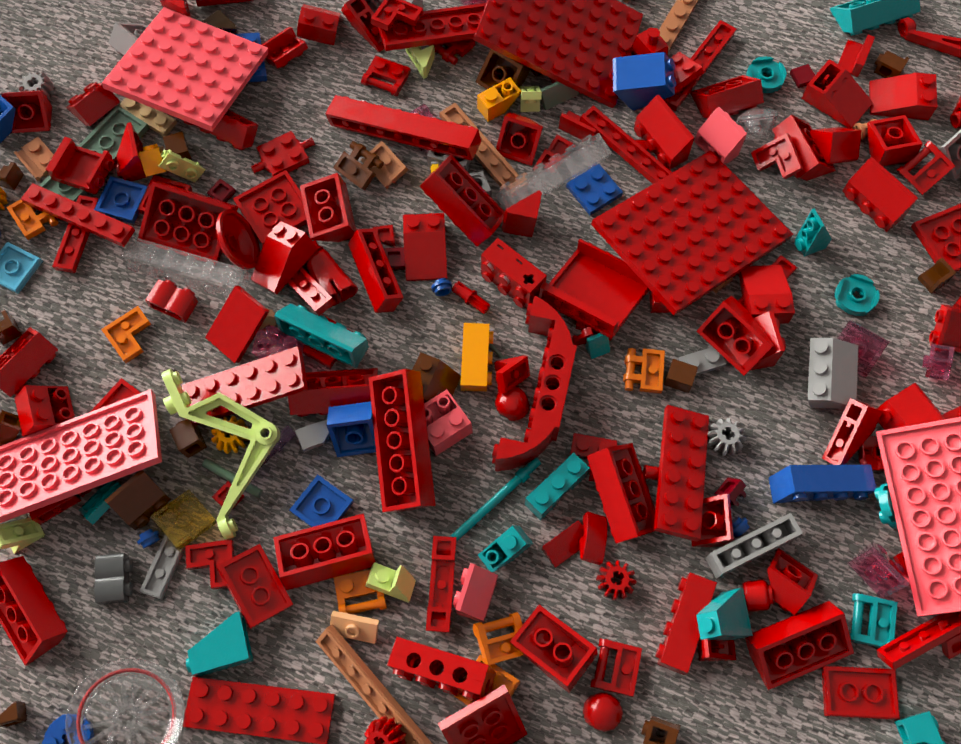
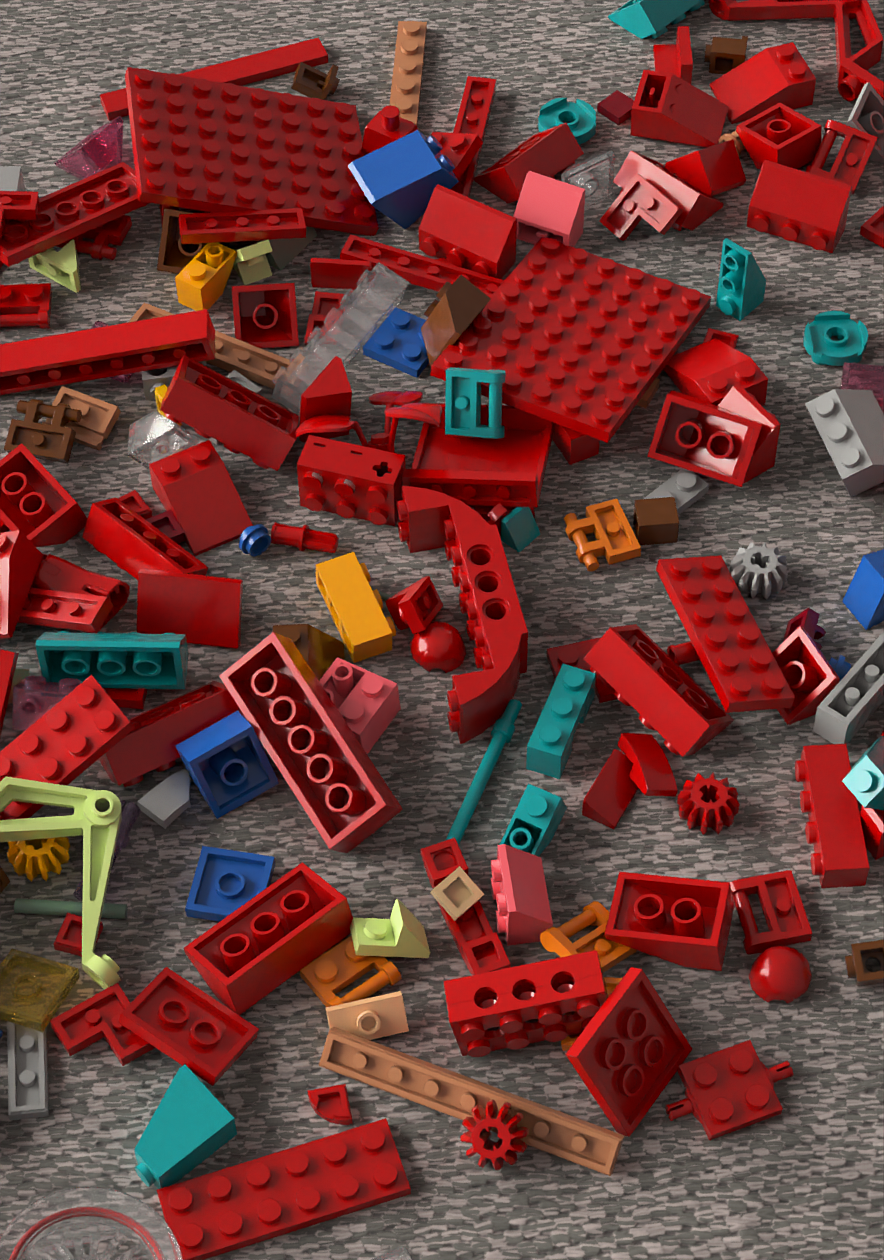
camera: 25 degrees left, 15 degrees down
(311, 668) = (332, 1103): none -> red tile
(381, 318) = (190, 604): none -> red tile
(415, 201) = (156, 438): none -> clear slope
(440, 574) = (457, 893): none -> tan plate
(530, 76) = (242, 226): none -> red plate
(562, 251) = (383, 441): none -> red plant
(601, 252) = (464, 402): none -> teal plate
(623, 188) = (451, 315): none -> reddish brown slope

